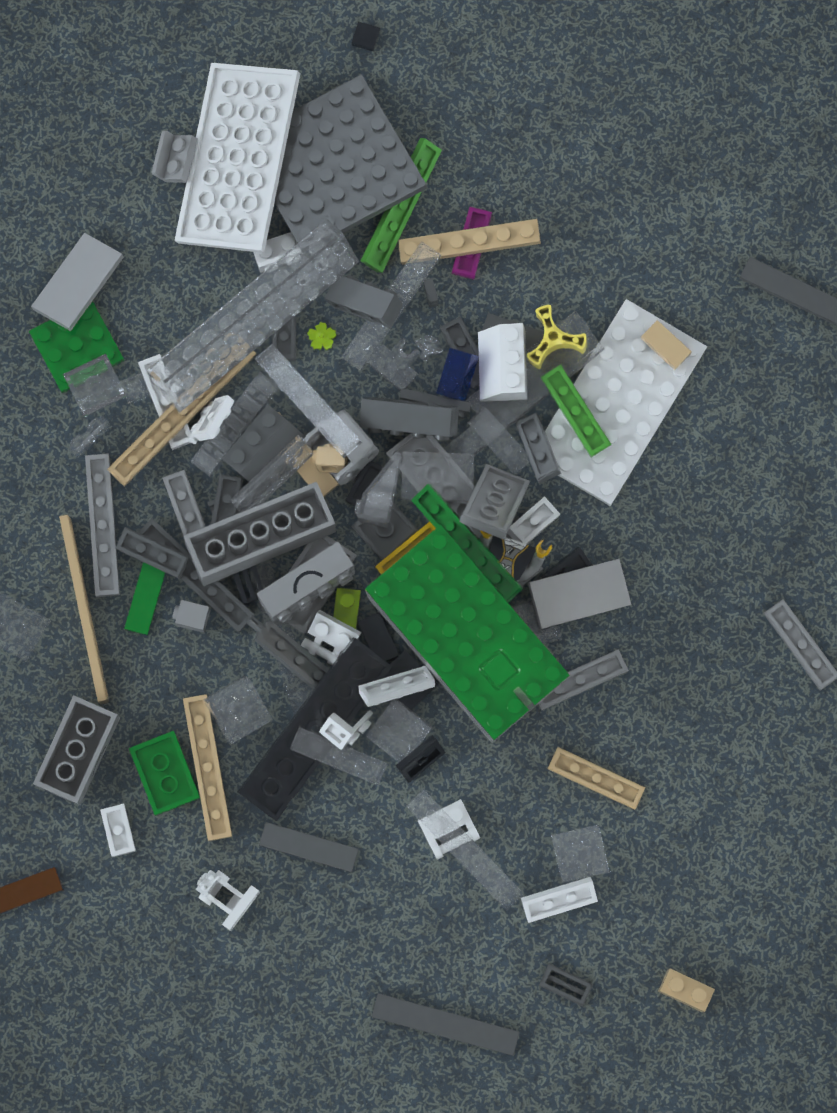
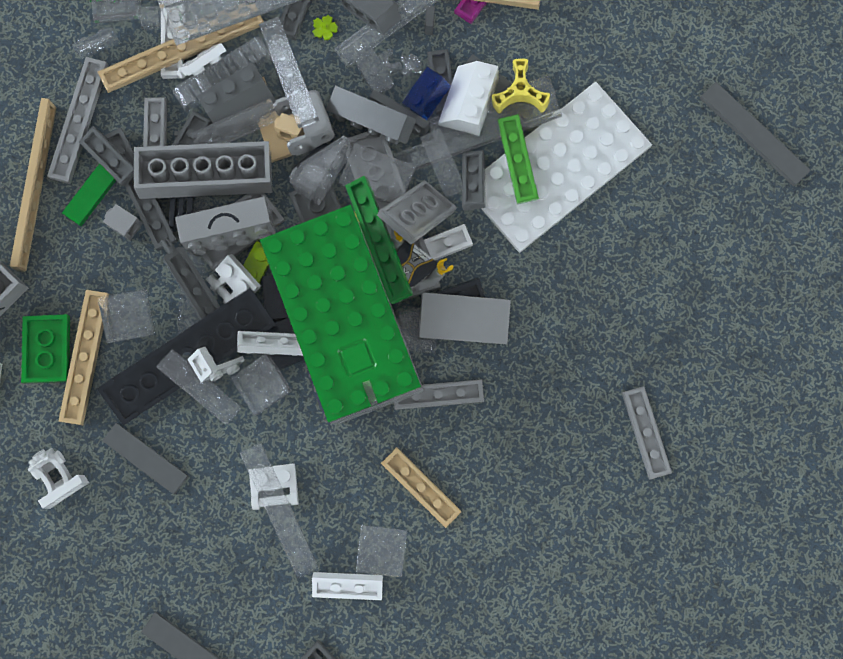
camera: 20 degrees right, 0 degrees up
(420, 759) = (271, 415): black tile -> none
(666, 345) = (617, 130): tan tile -> none

